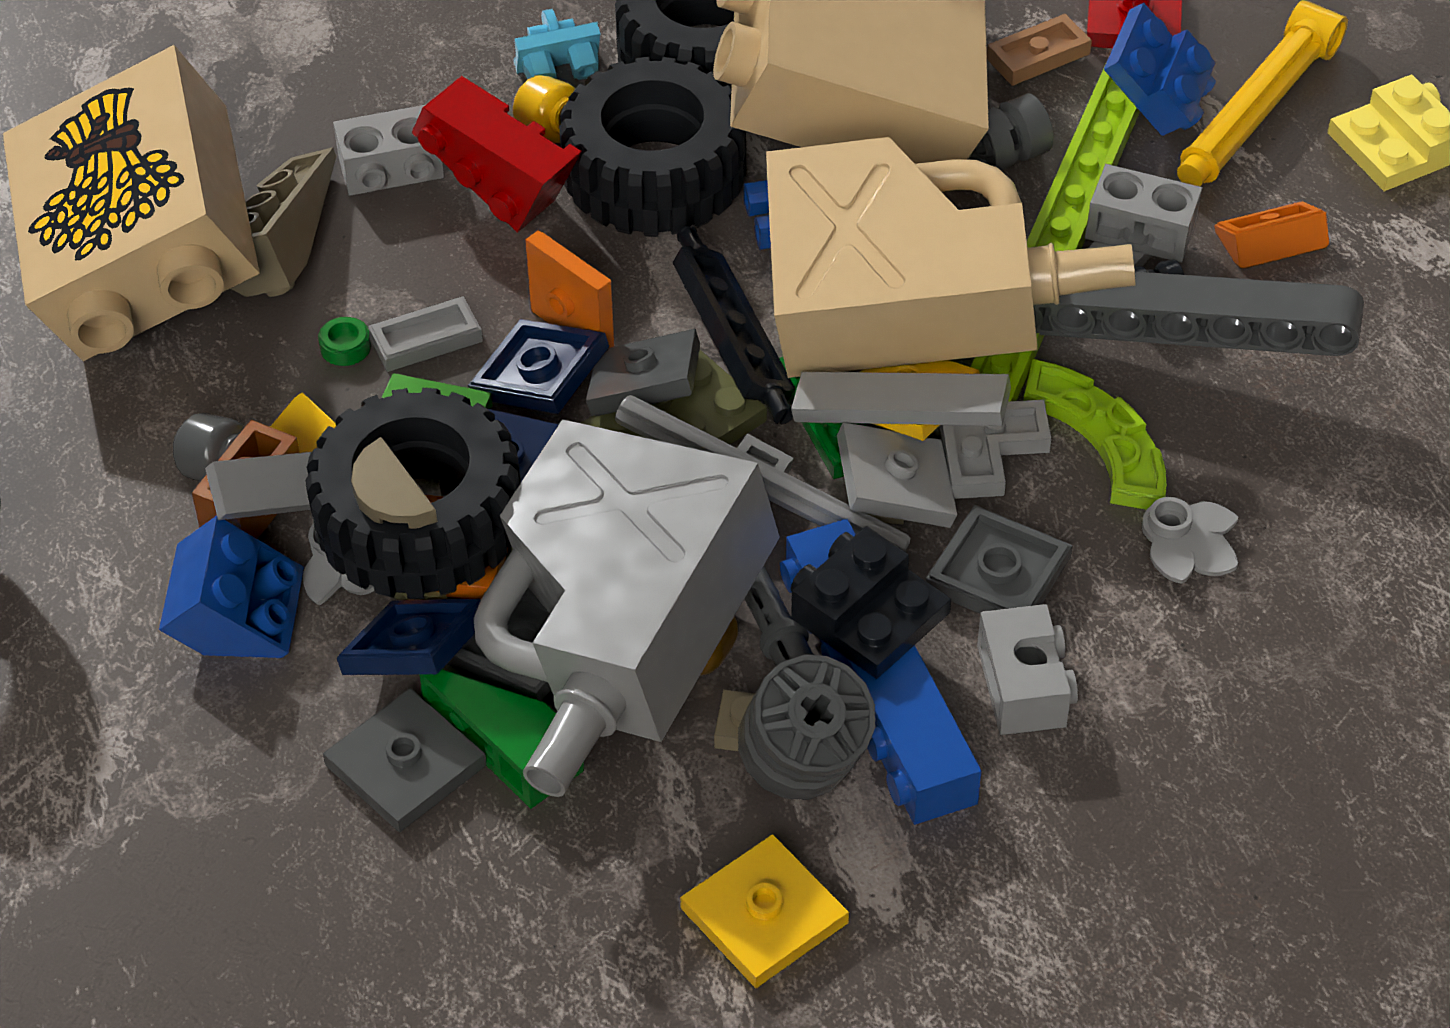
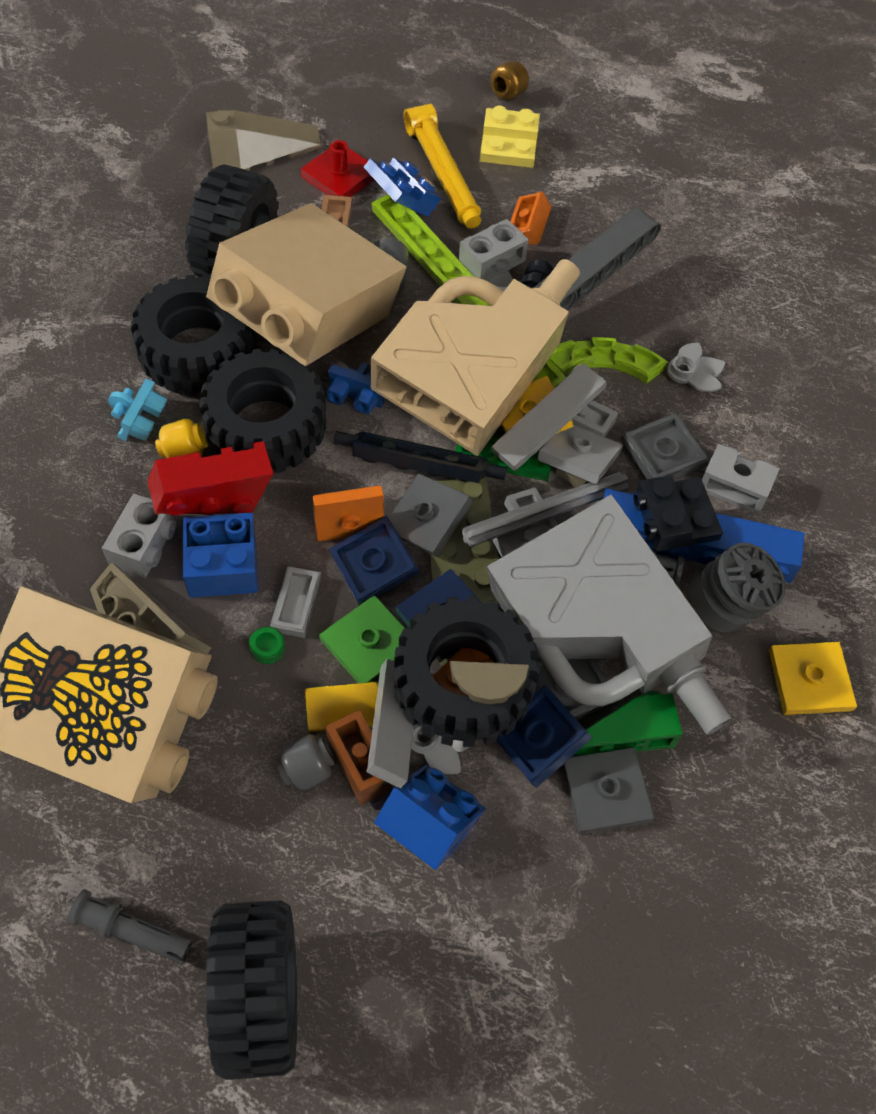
camera: 60 degrees left, 10 degrees up
(417, 226) = (220, 555): none -> blue slope

